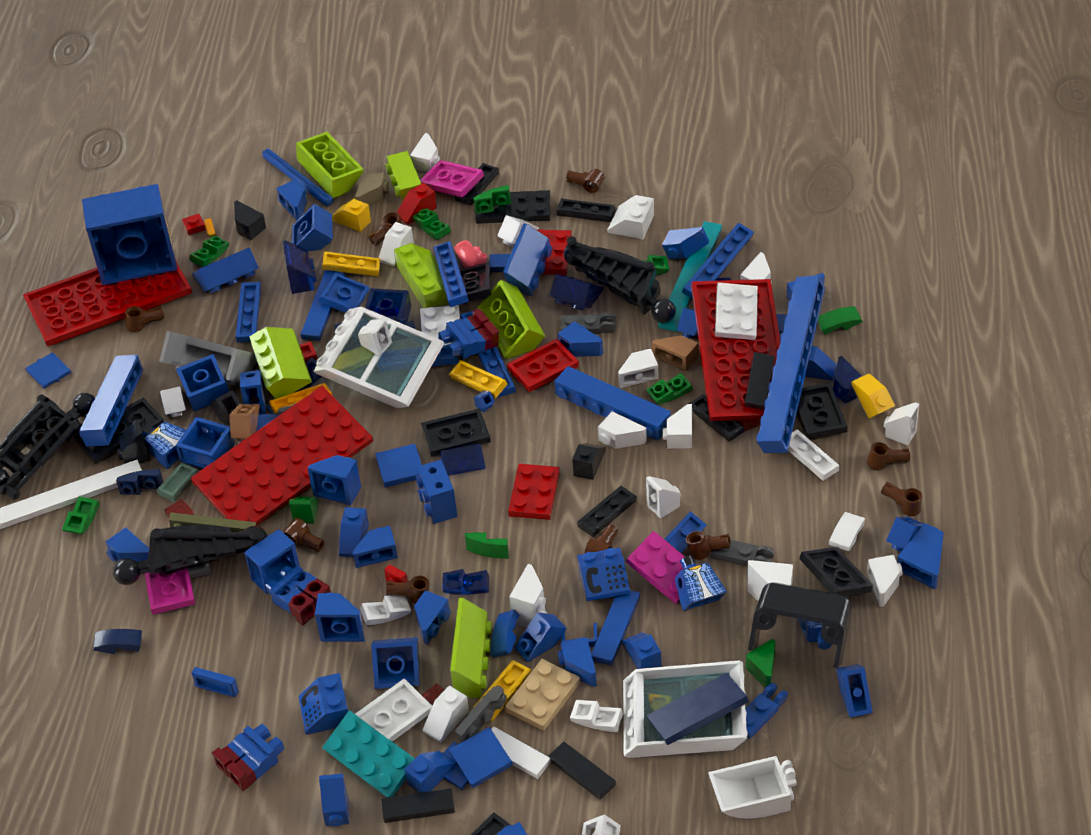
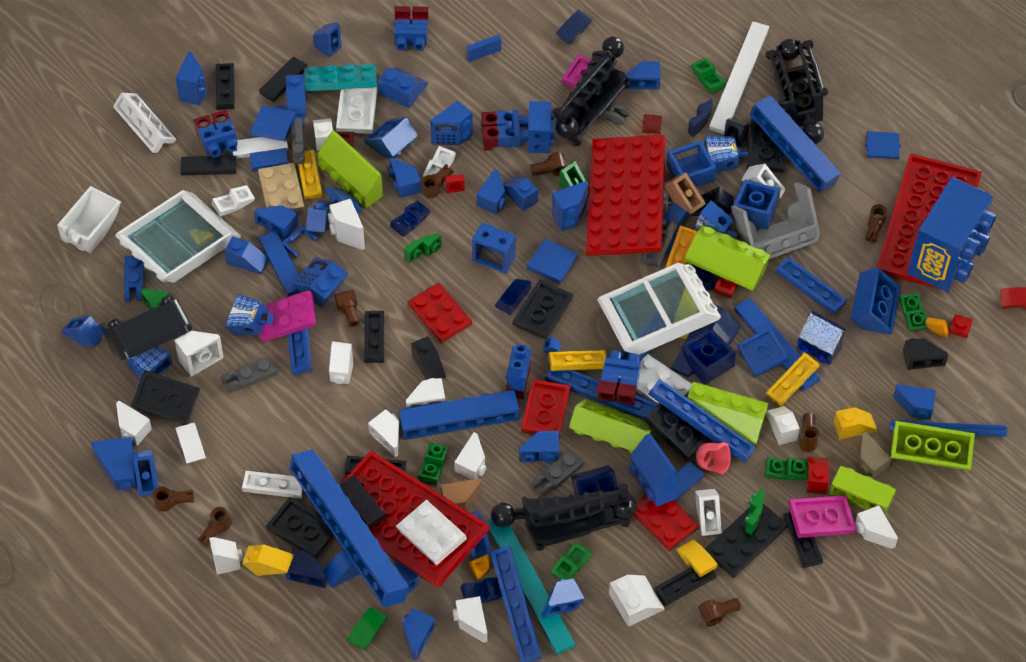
camera: 130 degrees right, 10 degrees up
(177, 482) = (680, 137): sand green tile -> none
(178, 519) = (607, 118): olive plate -> none
(313, 229) = (860, 385): blue slope -> none
(375, 336) = (664, 295): white slope -> none
(522, 730) = (268, 158): none -> blue tile
(535, 389) = (518, 370): none -> blue hips
(544, 785) = (217, 134): none -> blue hips
(561, 210) = (697, 557): none -> yellow slope
(697, 708) = (163, 231): dark blue tile -> none
(701, 545) = (277, 352): reddish brown pin -> none

